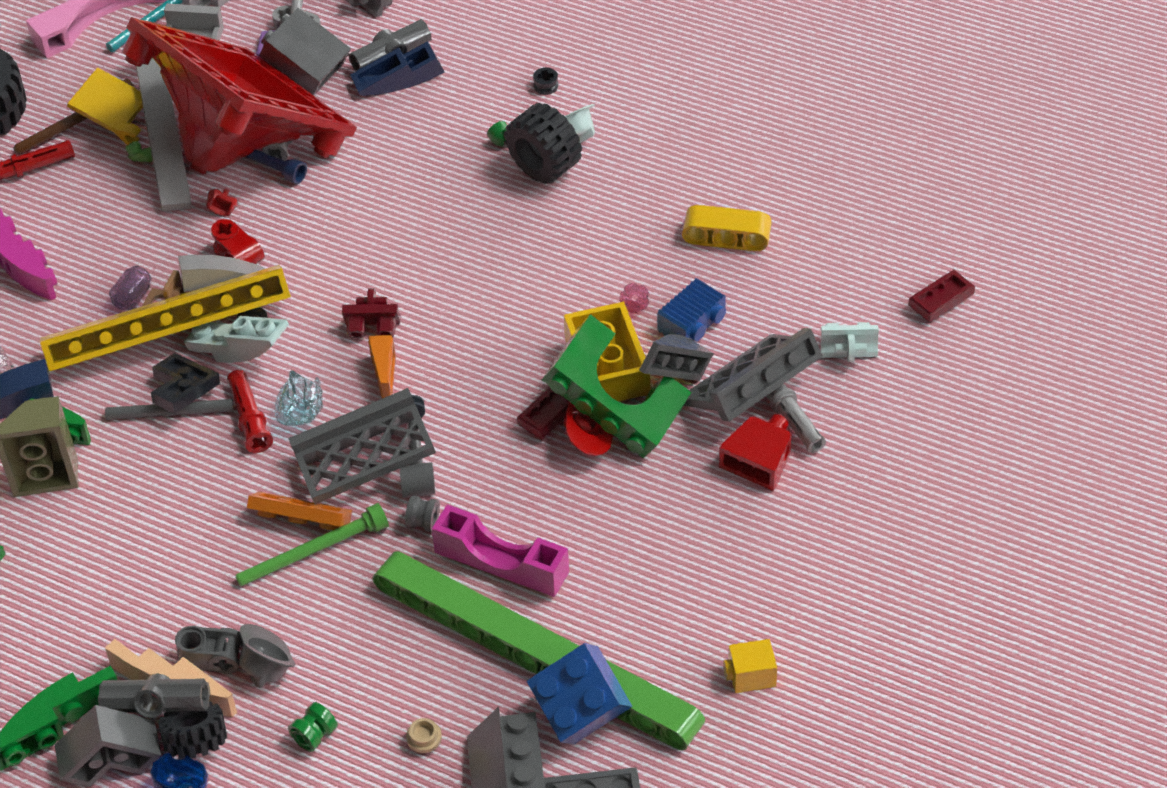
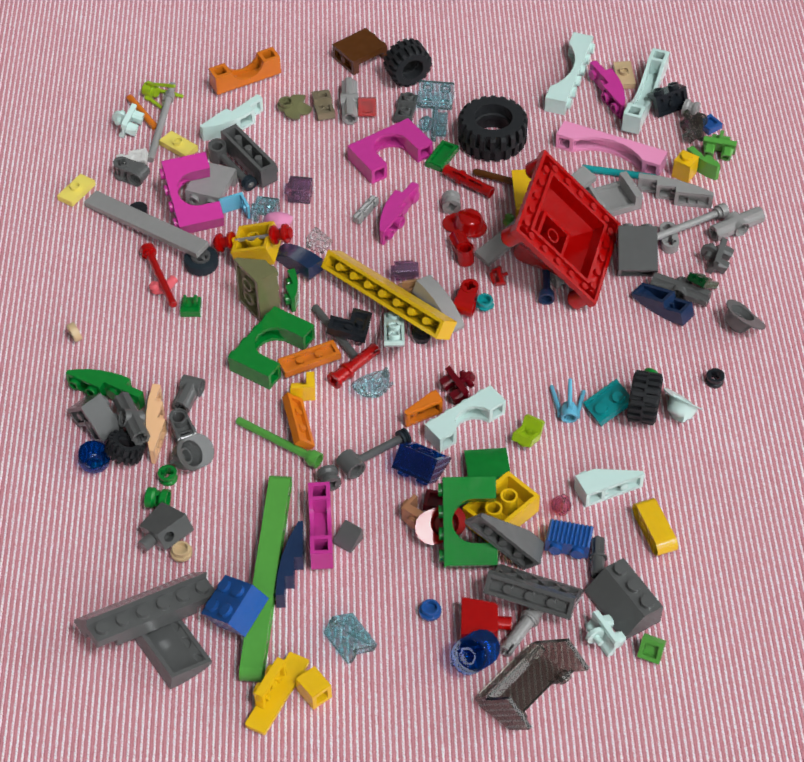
camera: 60 degrees right, 0 degrees up
(53, 192) = (451, 202): none -> light grey wheel
(101, 194) = (466, 220): none -> red piece
(141, 523) = (275, 326): none -> green arch
(143, 613) = (189, 389): none -> dark grey piece
(149, 214) = (462, 247): none -> red piece
(196, 454) = (309, 358): none -> orange plate
(247, 478) = (305, 390): none -> yellow panel
(256, 230) = (484, 302): none -> teal plate
(273, 692) = (171, 479): none -> green bush
(356, 429) = (363, 416): dark grey fence -> none
(377, 733) = (164, 527): none -> dark grey torso
(399, 19) = (702, 281): none -> dark green tile
(435, 357) = (484, 405): none -> light aqua arch
(470, 406) = (420, 462): none -> clear blue slope
(481, 18) = (741, 318): none -> dark grey piece
(494, 226) = (568, 411): none -> medium azure plant
(499, 279) = (529, 432): none -> lime bracket
(513, 185) = (608, 402): none -> teal plate
(523, 344) = (486, 462): none -> green slope
(528, 527) = (348, 536): none -> dark grey slope
(530, 602) = (291, 560): none -> dark blue slope
(548, 449) = (410, 511): none -> nougat bracket
(631, 246) = (604, 484): none -> light aqua slope
(694, 598) = (349, 636): none -> clear light blue bracket
(705, 495) = (430, 610): none -> blue plate
(732, 713) = (274, 691): none -> yellow bracket
(738, 300) = (598, 556): none -> dark grey axle
(806, 474) = (475, 652): none -> clear blue piece
(813, 297) = (625, 598): none -> dark grey slope
(865, 448) = (527, 679): none -> clear smoke windscreen
(898, 307) = (651, 648): none -> bright green tile
(941, 295) = (681, 670): dark red plate -> none

